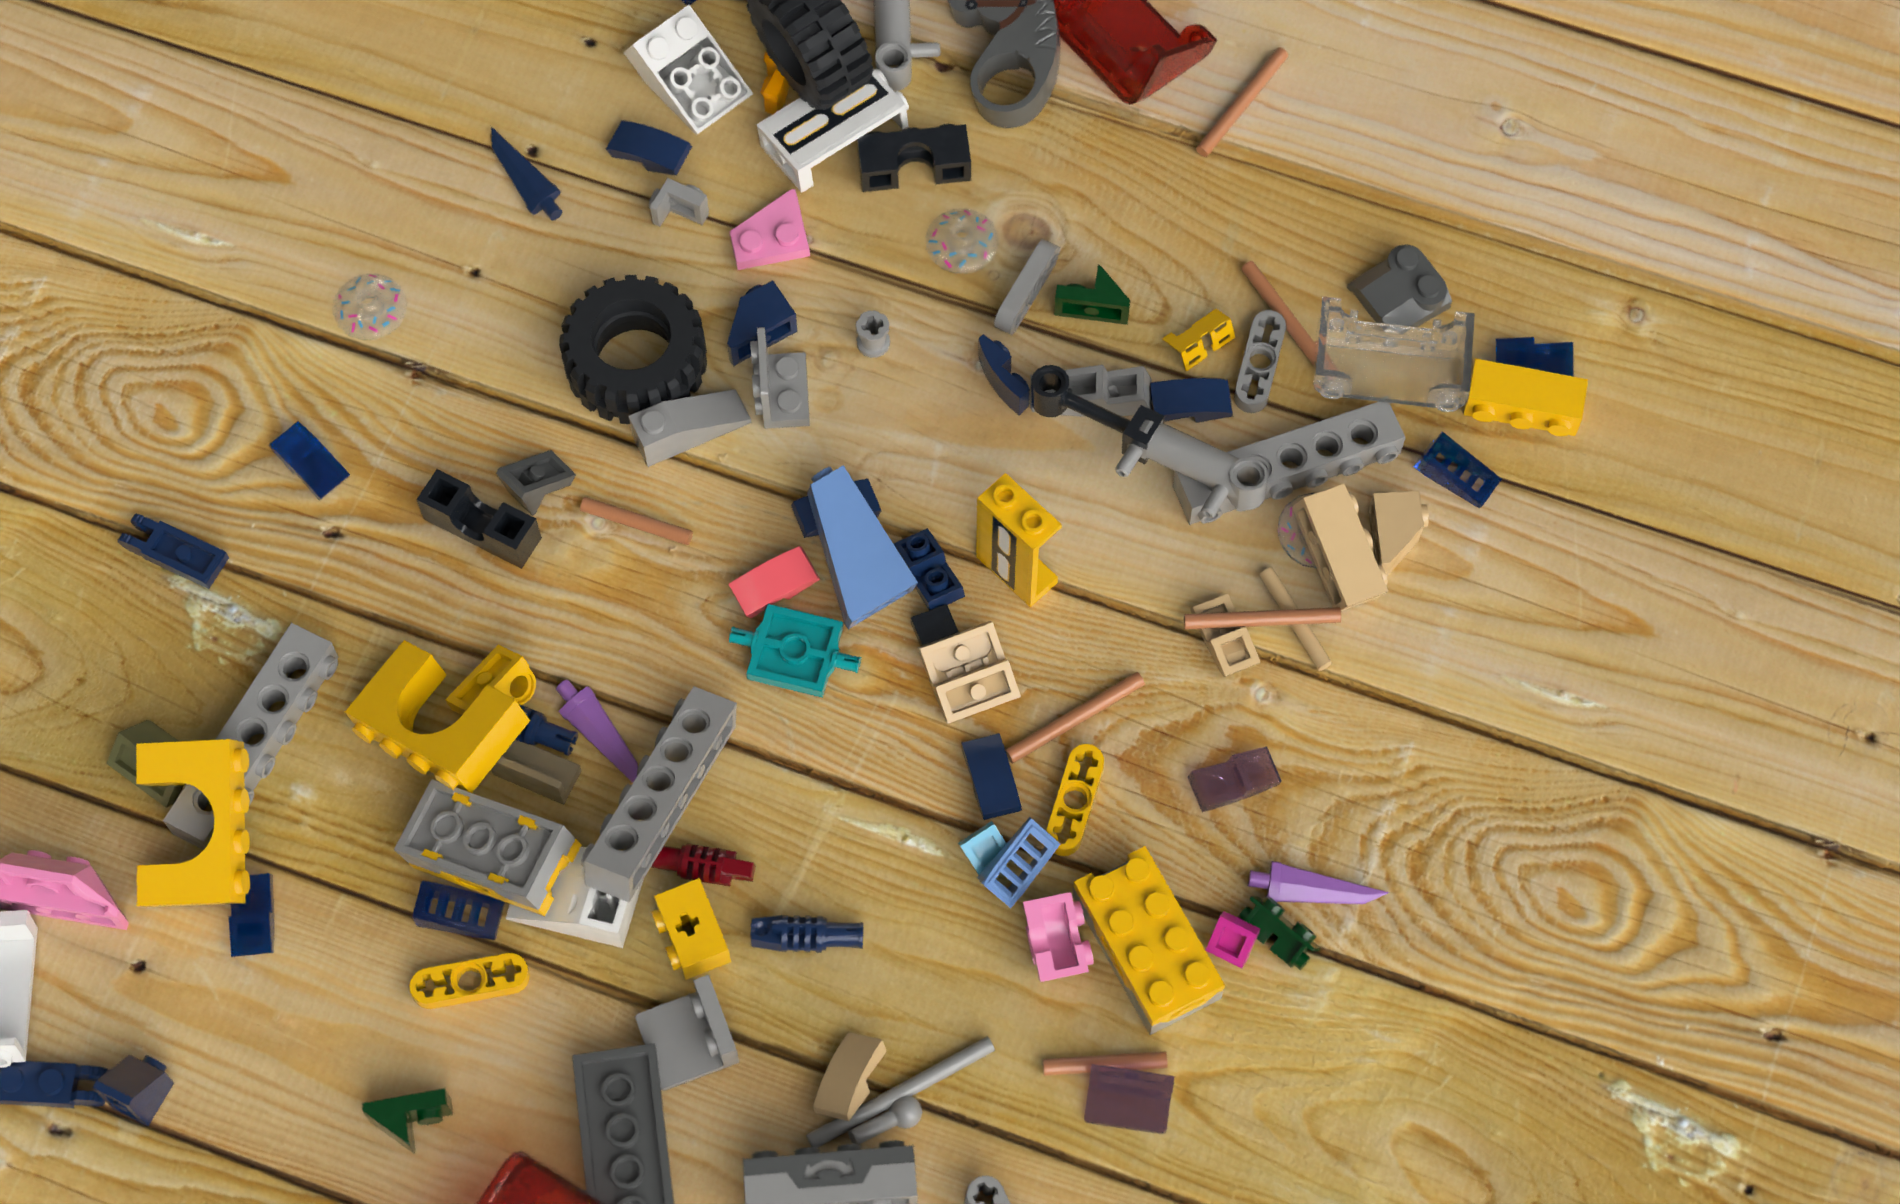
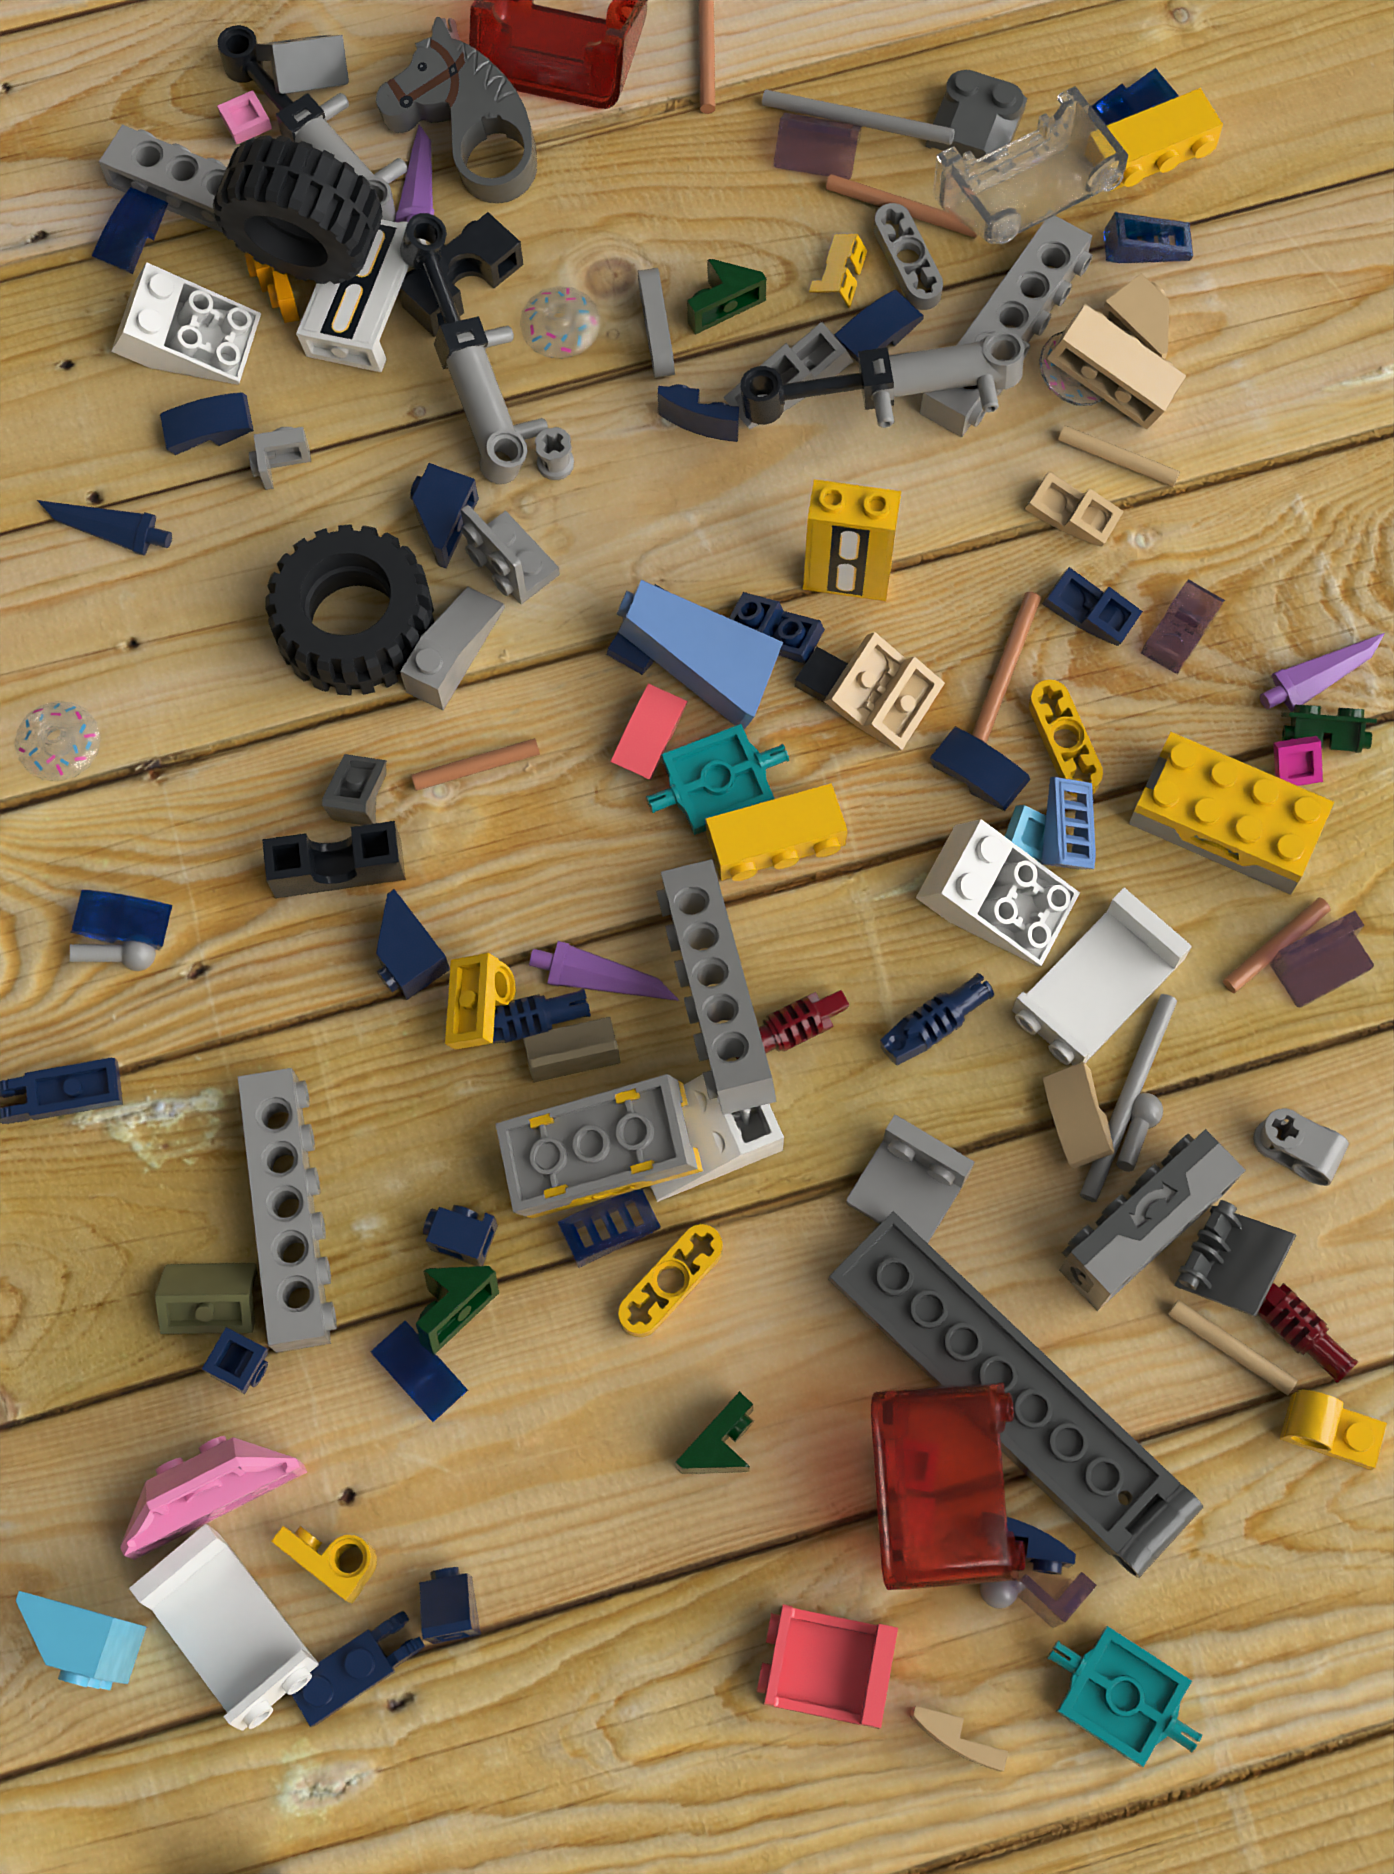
camera: 35 degrees left, 5 degrees up
(84, 999) = (326, 1567): none -> yellow plate
(138, 823) = (237, 1361): none -> dark blue brick
(219, 870) = (291, 1262): yellow arch -> none
(297, 490) = (132, 954): none -> light grey bar
(319, 886) = (461, 1297): none -> dark green slope
(354, 842) = (460, 1233): none -> dark blue brick
(457, 754) = (502, 1086): yellow arch -> none
(478, 616) = (407, 950): none -> dark blue slope
(684, 907) = (820, 1069): yellow brick -> none
(771, 234) = (385, 427): bright pink wing -> none
(803, 718) = (776, 833): none -> yellow brick
(860, 226) = (462, 350): none -> light grey piece
(928, 877) = (997, 892): none -> white slope
(933, 79) = (417, 188): none -> medium lavender bar
(948, 995) = (1101, 980): none -> white panel
(1055, 936) = (1153, 869): bright pink cylinder -> none
(1177, 717) = (1091, 609): none -> dark blue slope
(1260, 231) = (816, 145): none -> panel
(1262, 618) = (1096, 472): nougat bar -> none
(1307, 231) = (858, 117): none -> light grey piece

